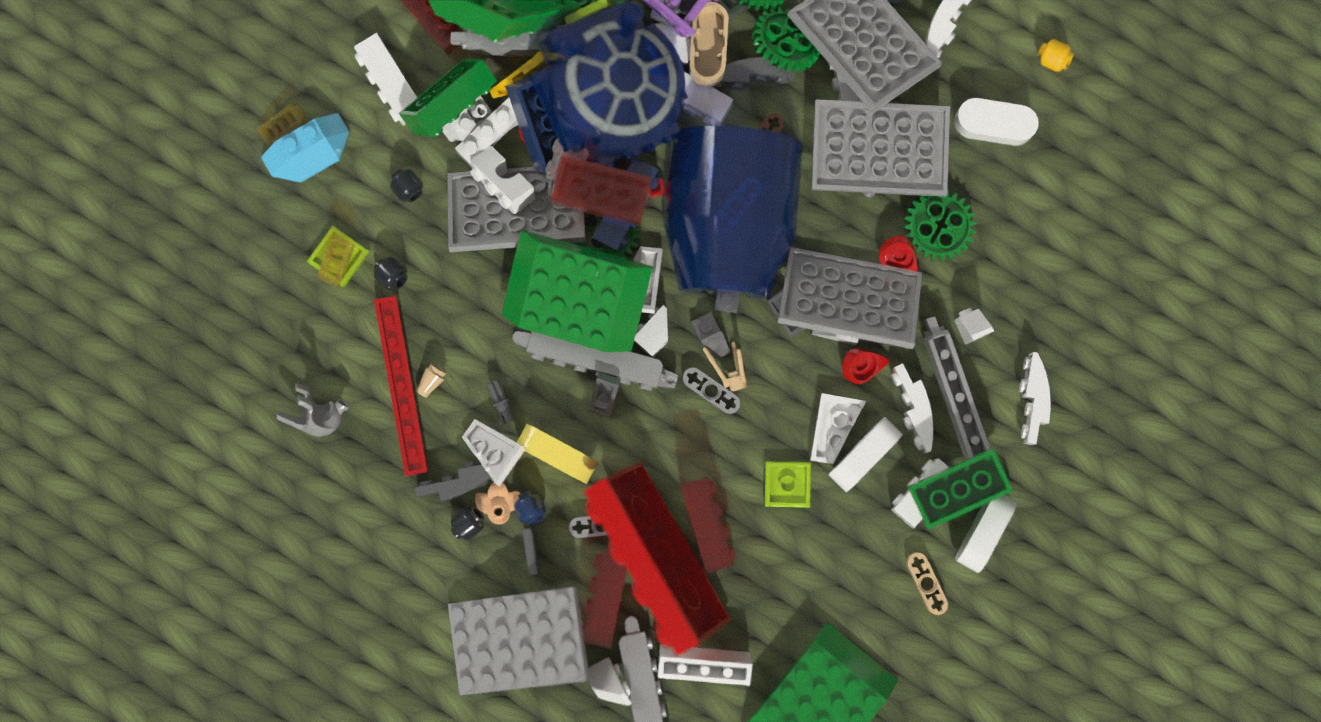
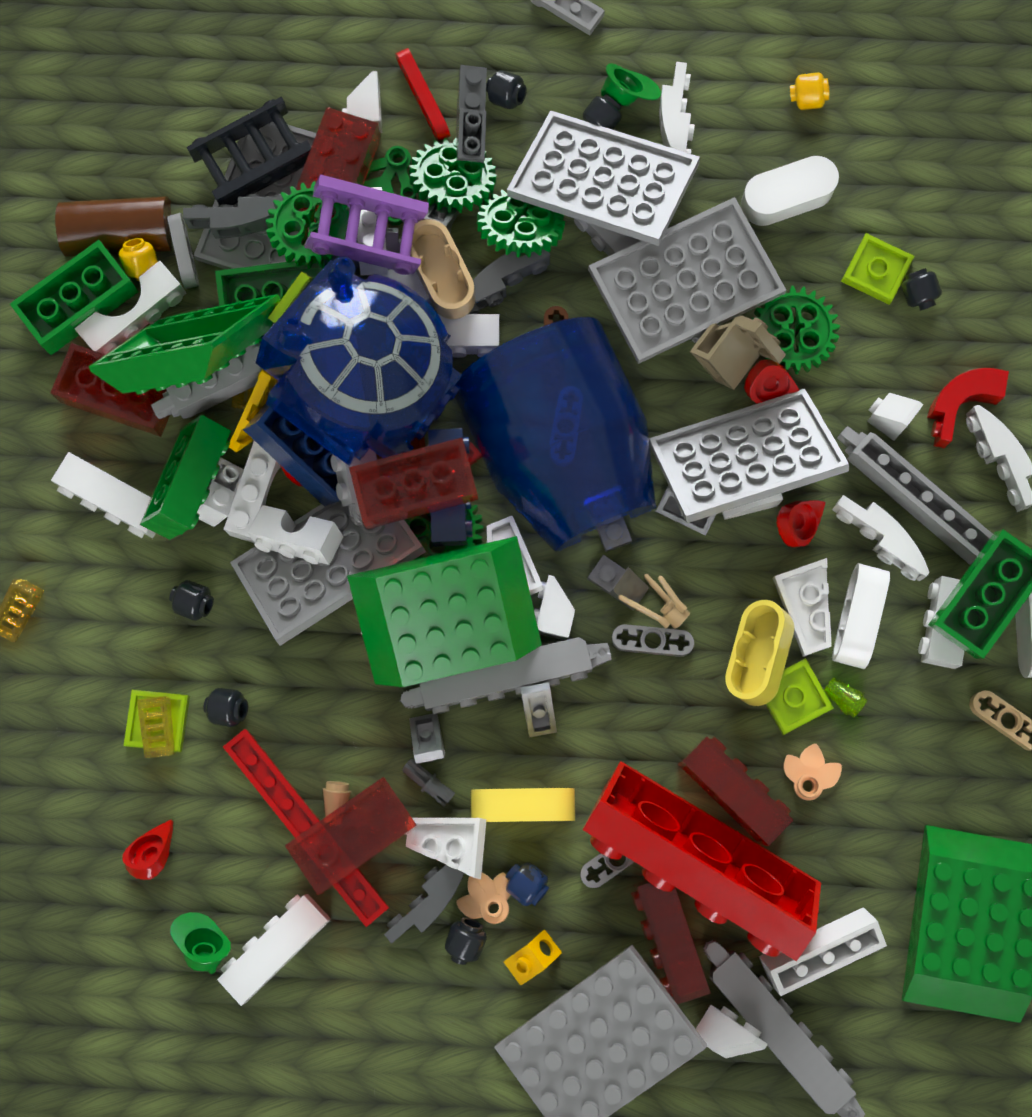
camera: 25 degrees left, 5 degrees down
(284, 433) = (200, 941): none -> green piece
(285, 344) = (149, 852): none -> red piece
(307, 149) = (58, 621): medium azure wedge -> none
(315, 419) = (228, 918): light grey piece -> none
(335, 456) = (273, 949): none -> white brick
(427, 409) = (351, 836): none -> clear red brick
(504, 560) = (531, 960): none -> yellow bracket
(516, 371) = (426, 738): none -> flat silver slope
(530, 550) = (555, 933): dark grey tile -> none
(771, 540) = (811, 768): none -> light nougat plate
(779, 440) = (759, 653): none -> light yellow plant
(822, 504) = (846, 697): none -> clear neon green cone
(885, 216) = (733, 348): none -> dark tan piece
(1027, 214) = (877, 269): none -> lime tile
(1044, 336) = (979, 385): none -> red arch
(1048, 246) = (921, 289): none -> black head

